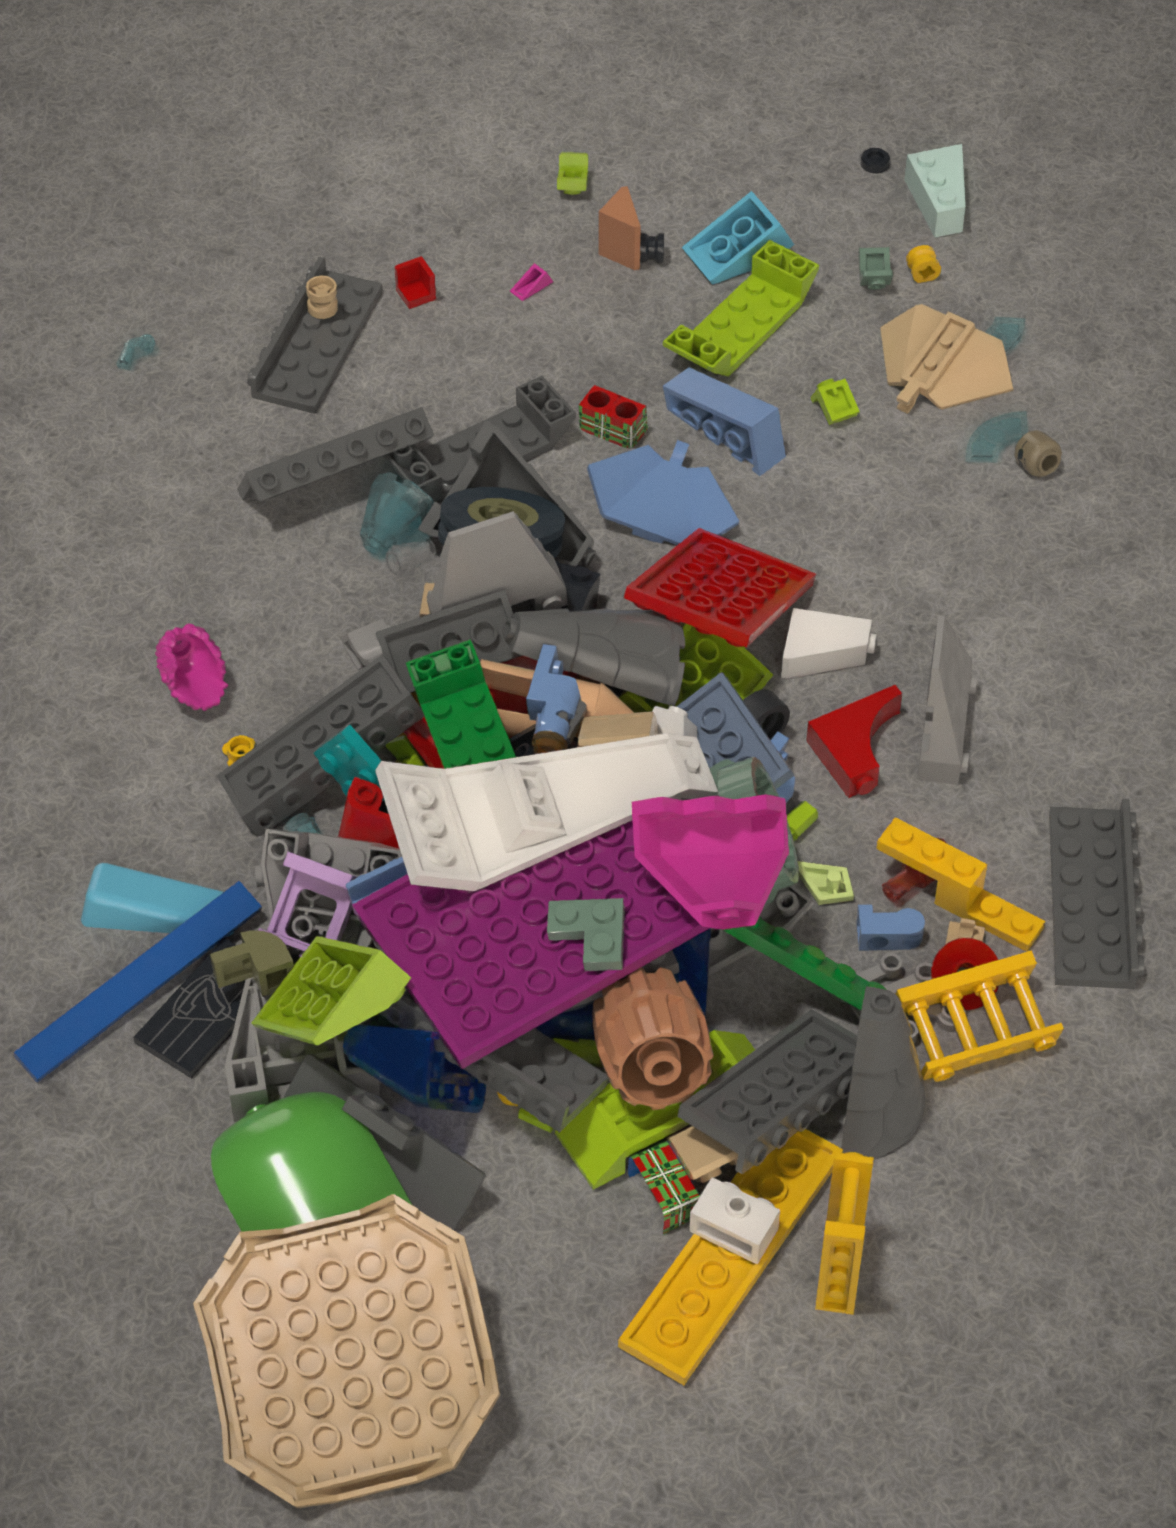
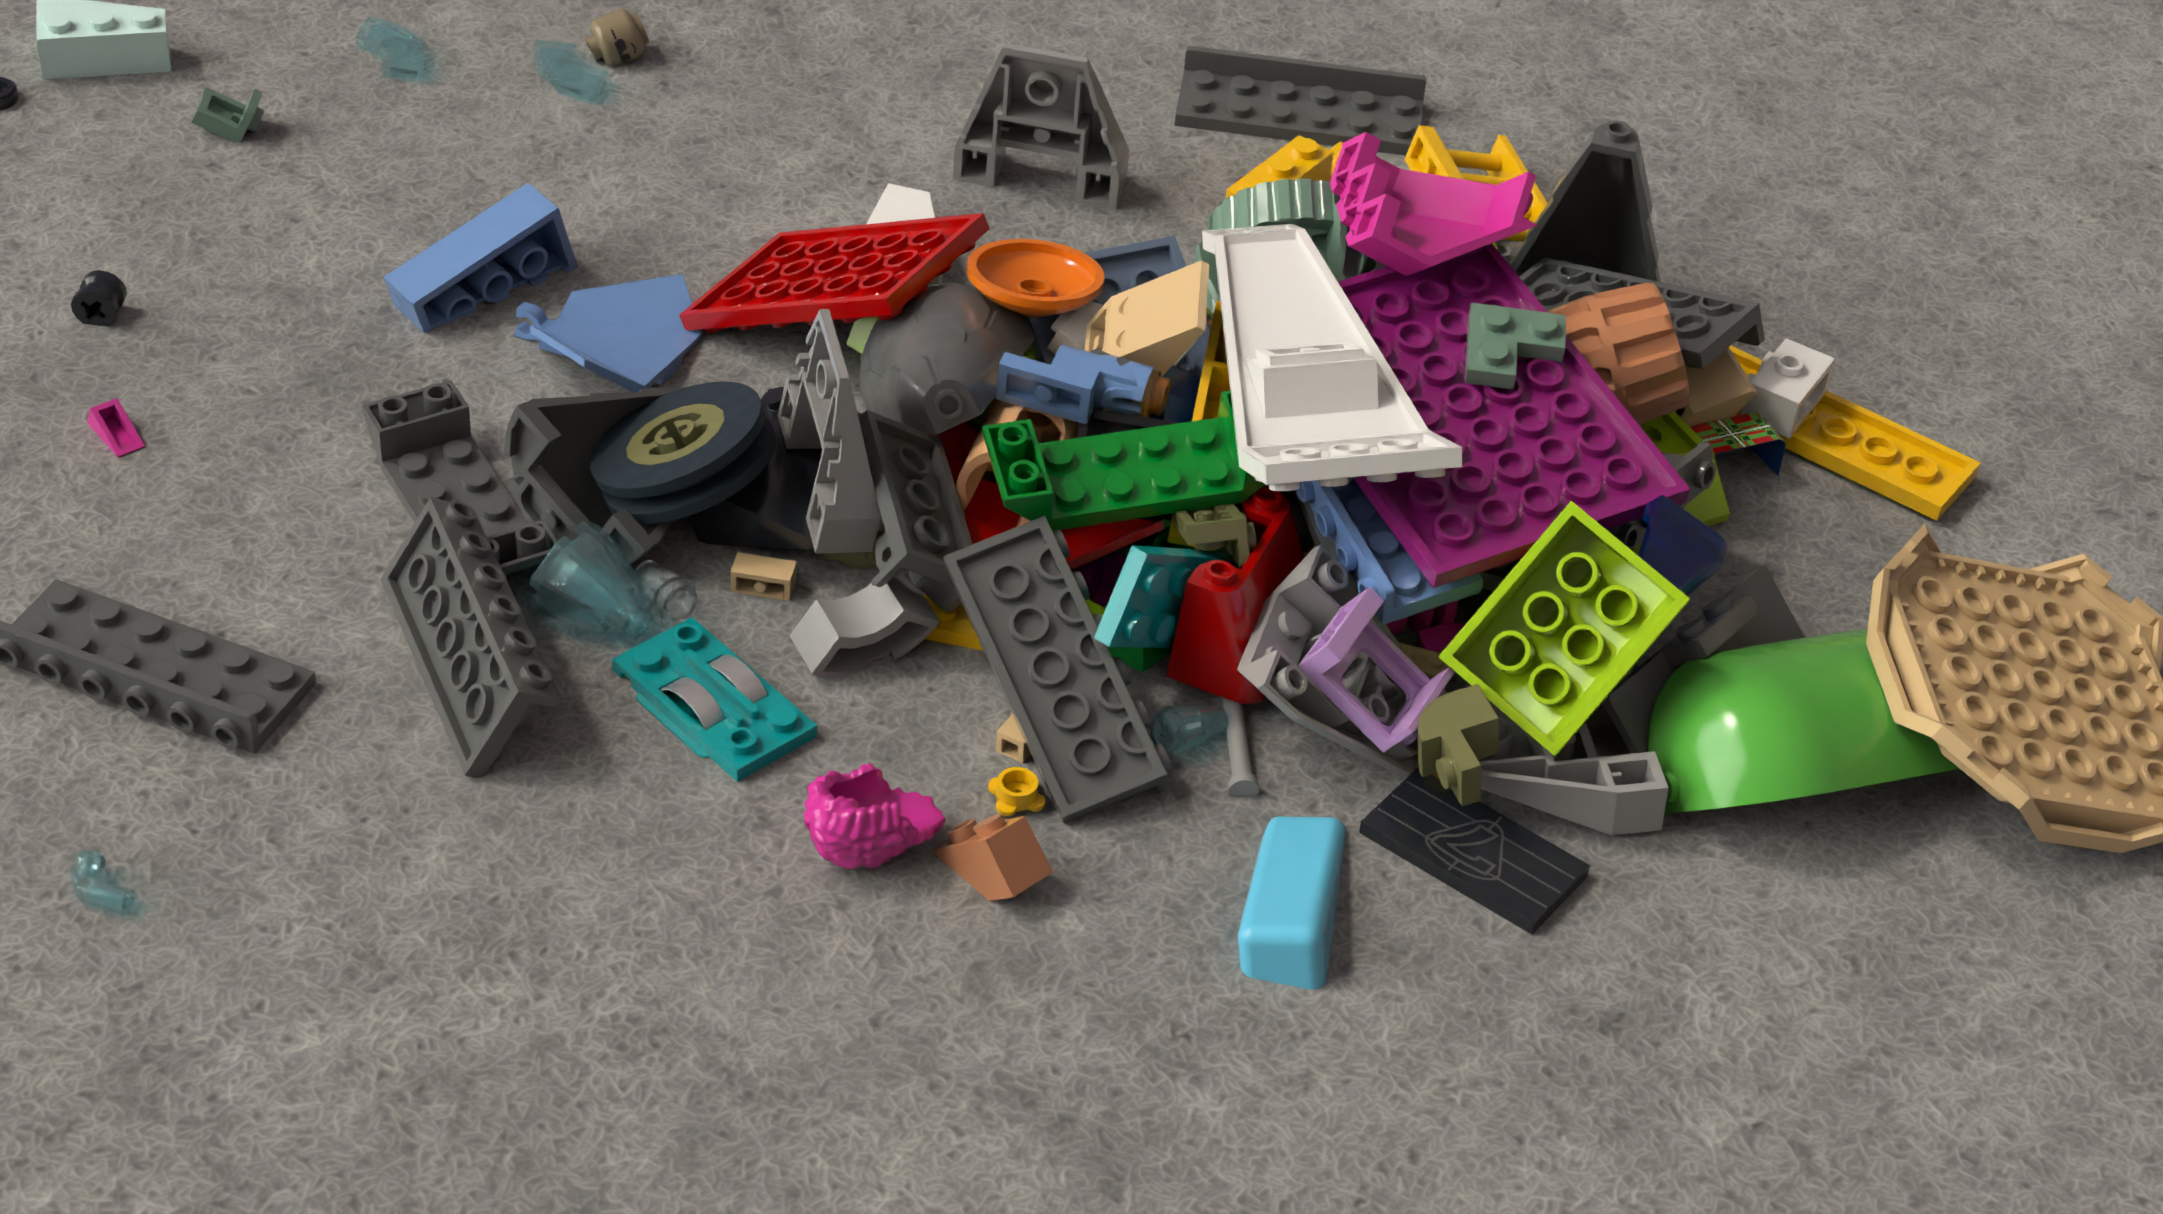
camera: 90 degrees left, 10 degrees down
(137, 981) = (1445, 914): blue tile -> none
(171, 738) = (995, 855): none -> nougat slope
(317, 595) = (713, 699): none -> teal piece
(321, 297) = (95, 620): tan wheel -> none
(415, 282) = (79, 535): red panel -> none
(612, 428) = (419, 365): piece -> none
(620, 230) = (70, 304): nougat slope -> none
(694, 663) = (1035, 276): none -> orange dish
(732, 239) = (123, 214): medium azure slope -> none
(749, 313) = (229, 209): lime slope -> none
(835, 400) = (470, 174): lime bracket -> none
(844, 739) = (1083, 230): red arch -> none
(844, 1232) = (1867, 275): yellow fence -> none
(923, 264) = (236, 74): yellow wheel -> none
(942, 359) = (417, 88): tan panel -> none

